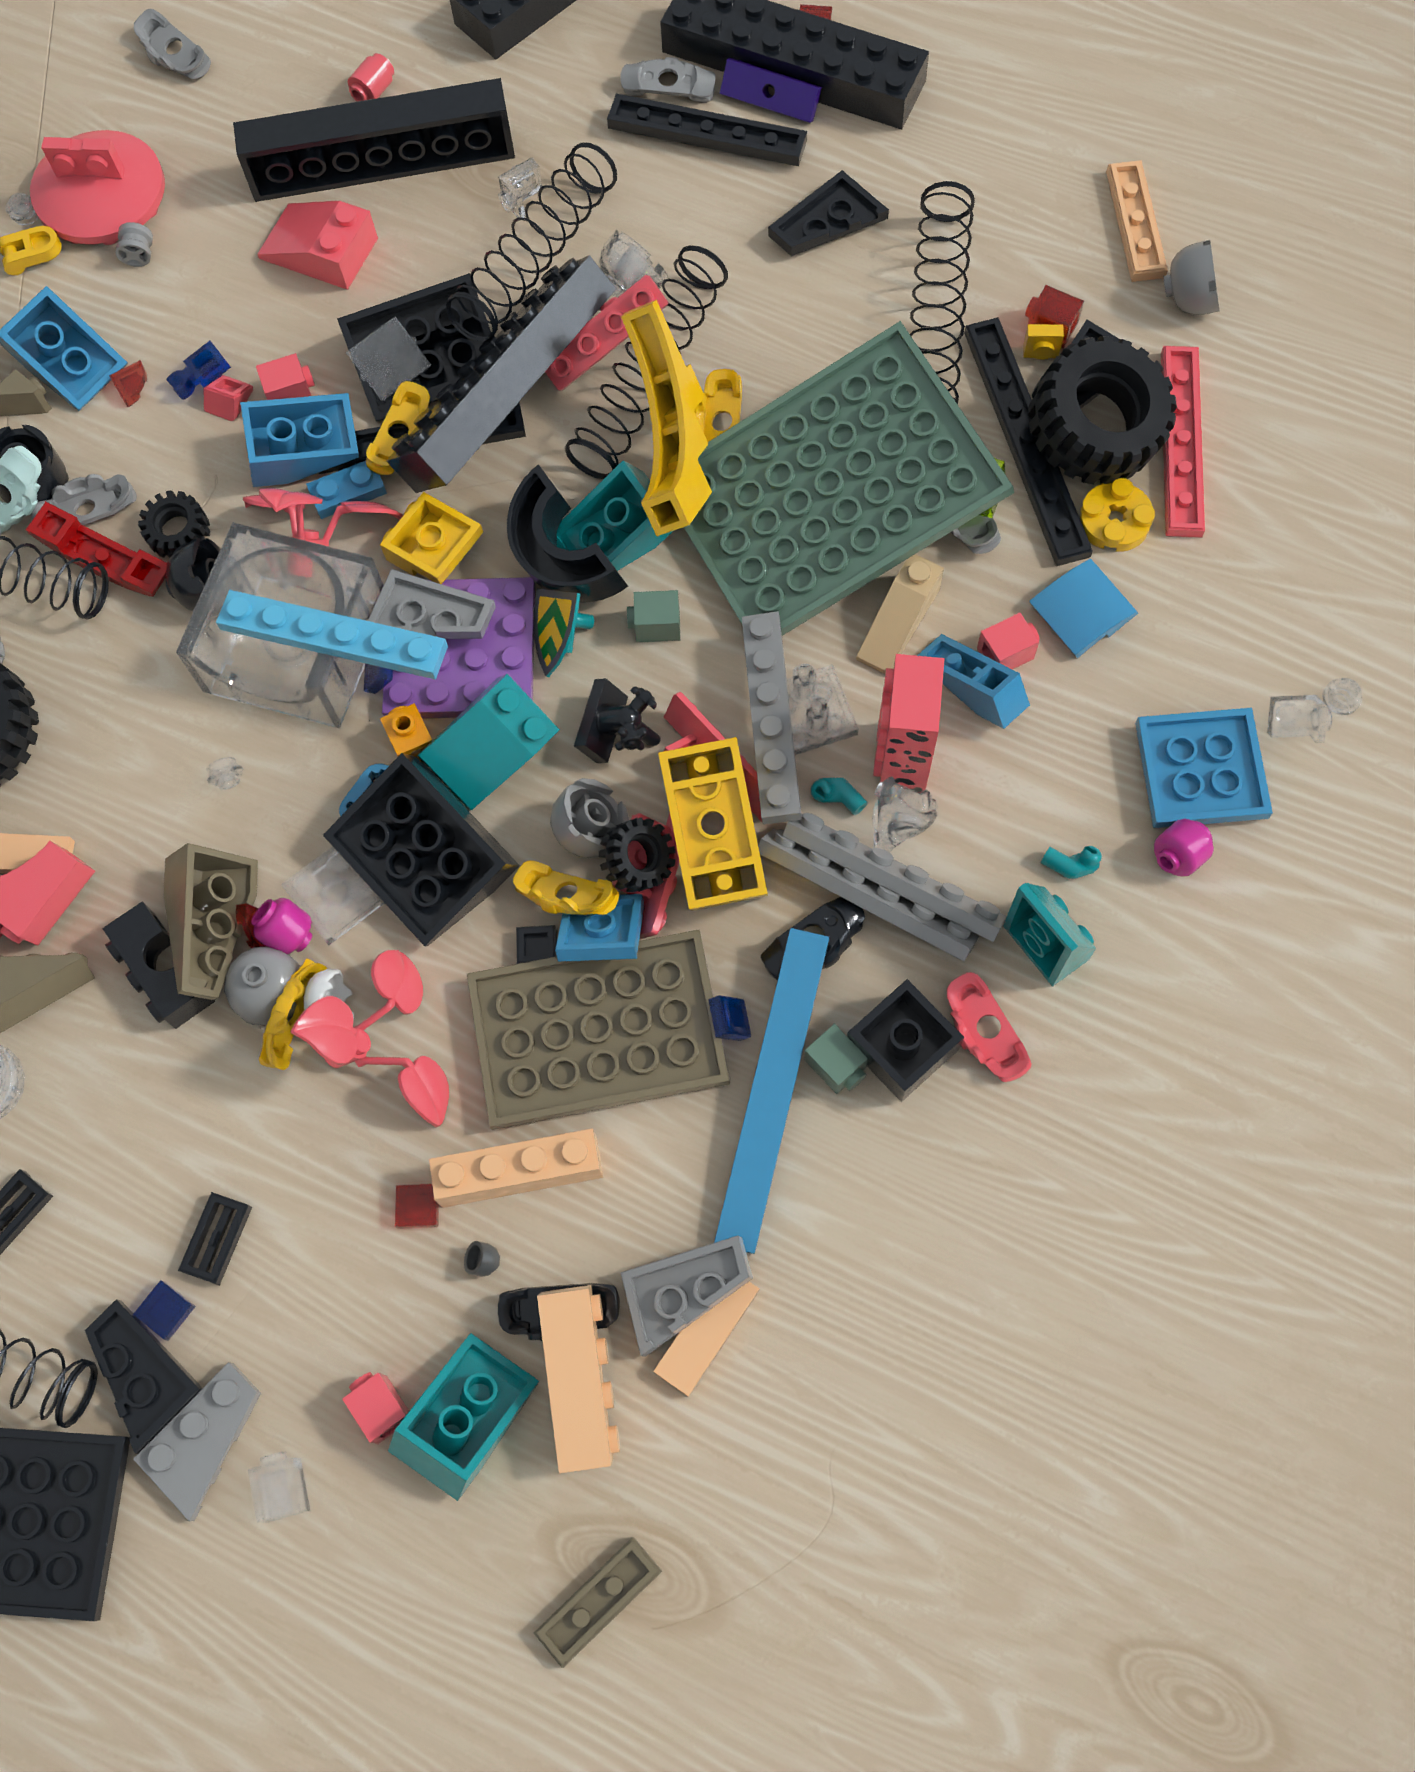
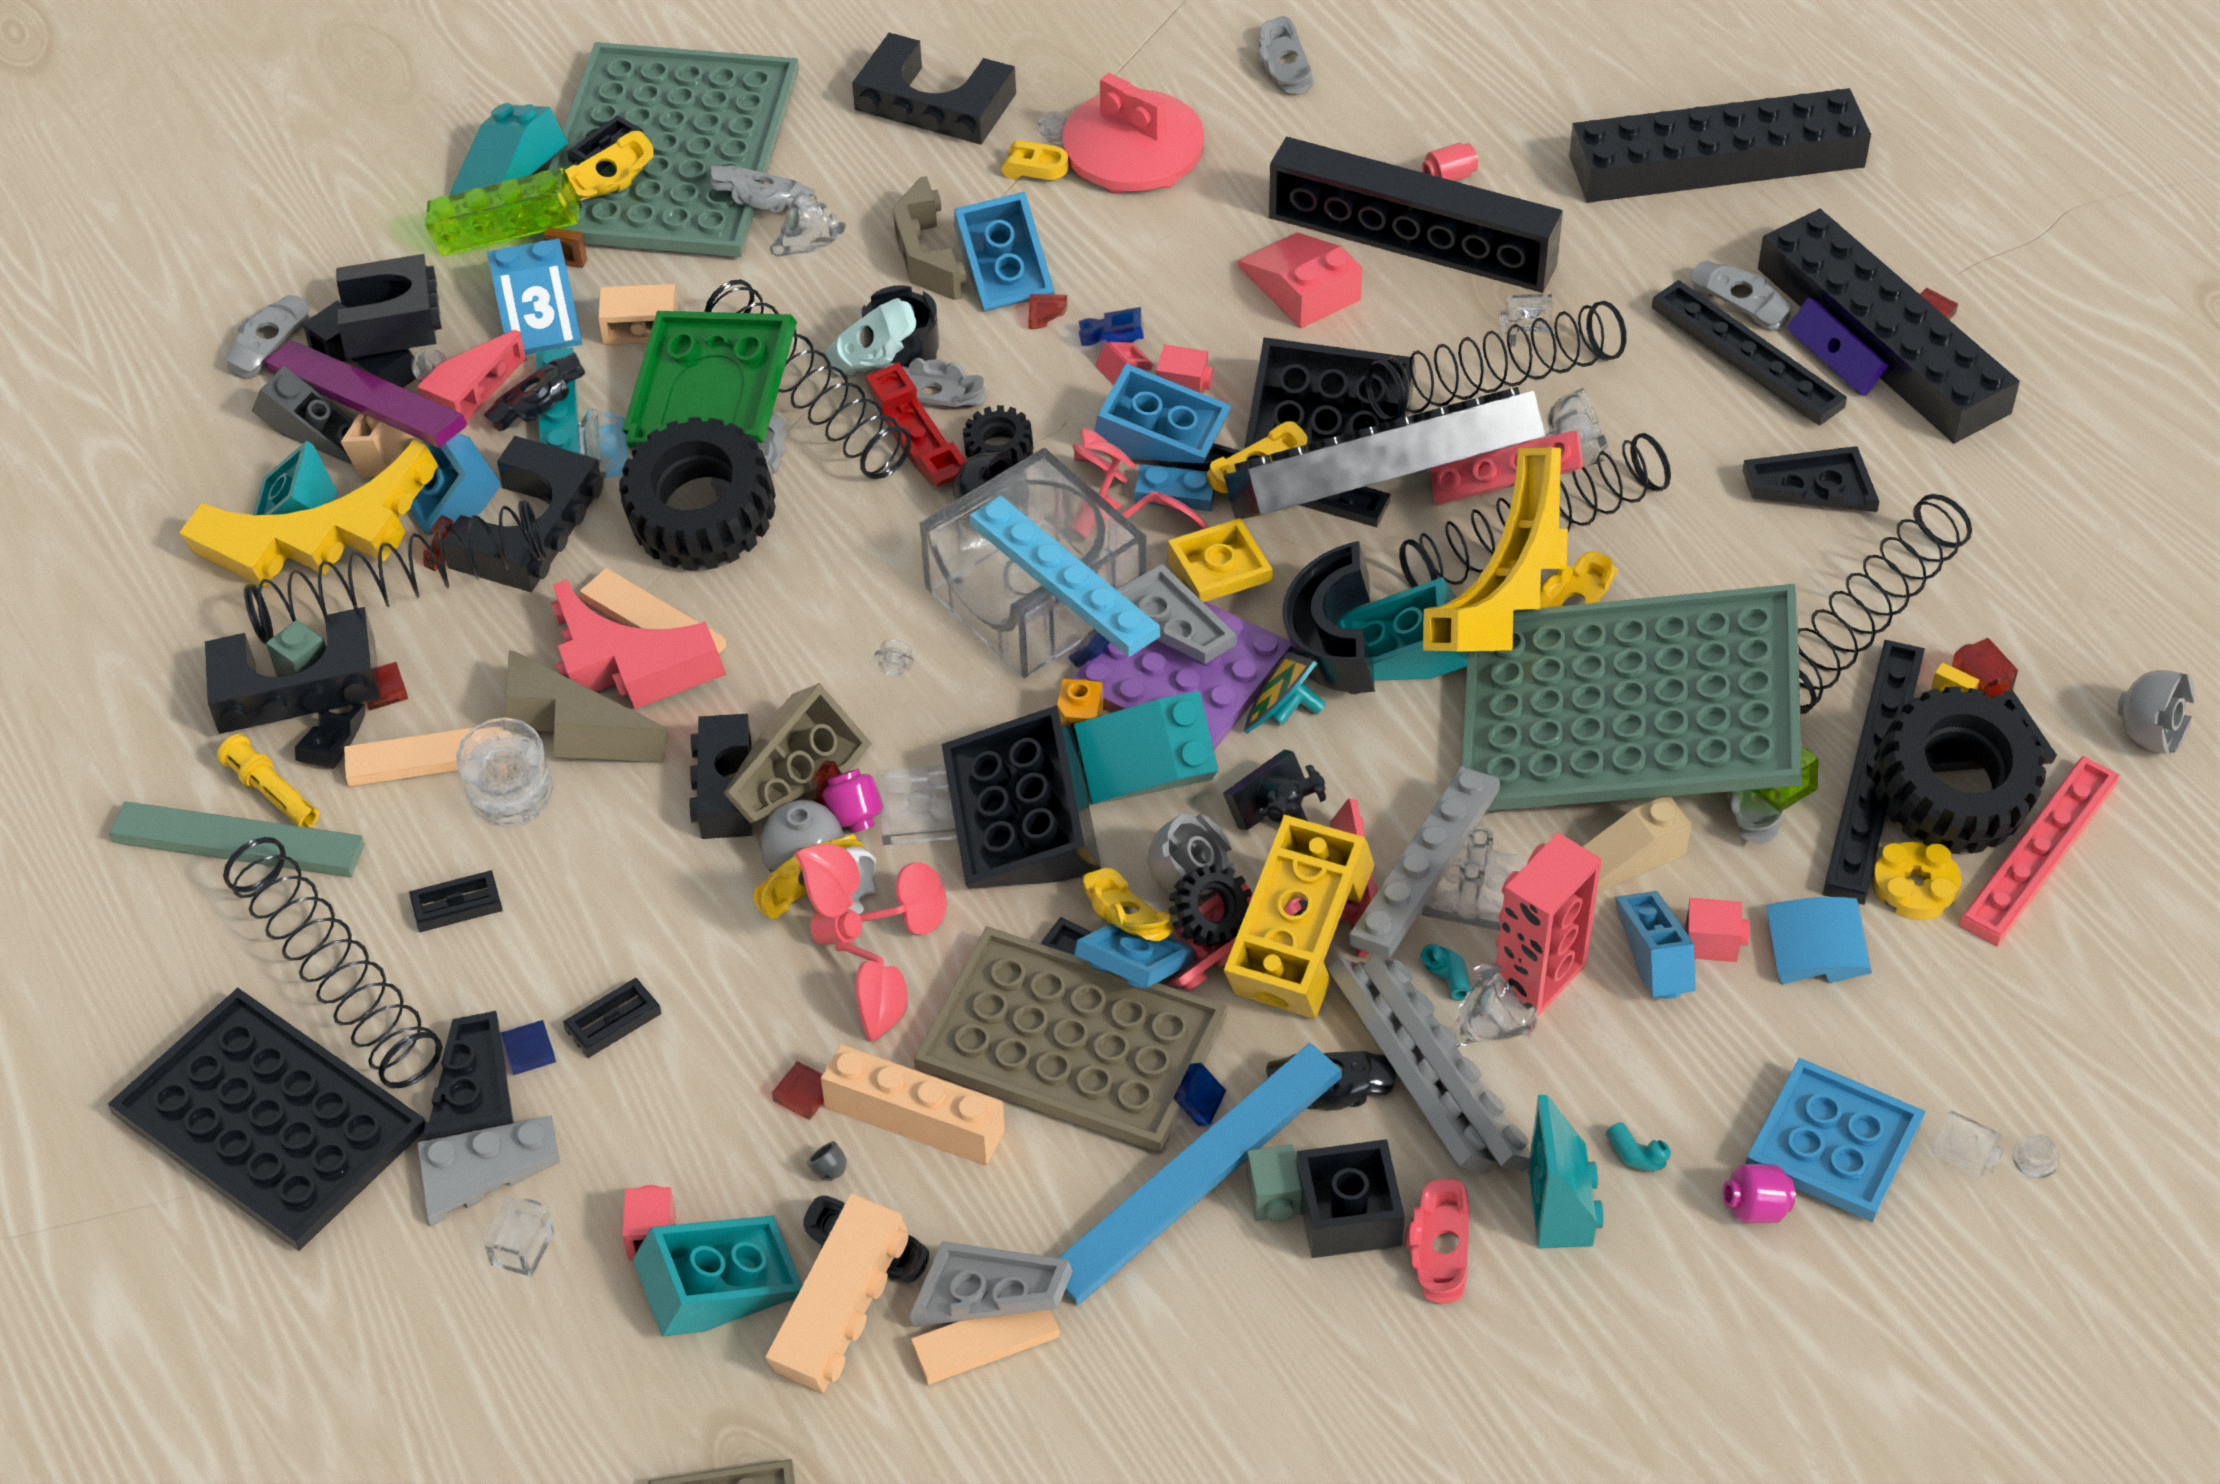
camera: 30 degrees right, 20 degrees down
(134, 244) = (1131, 200): light grey wheel -> none
(388, 358) = (1290, 395): clear piece -> none
(655, 616) = (1383, 731): sand green brick -> none
(1136, 221) = (2142, 632): light nougat tile -> none

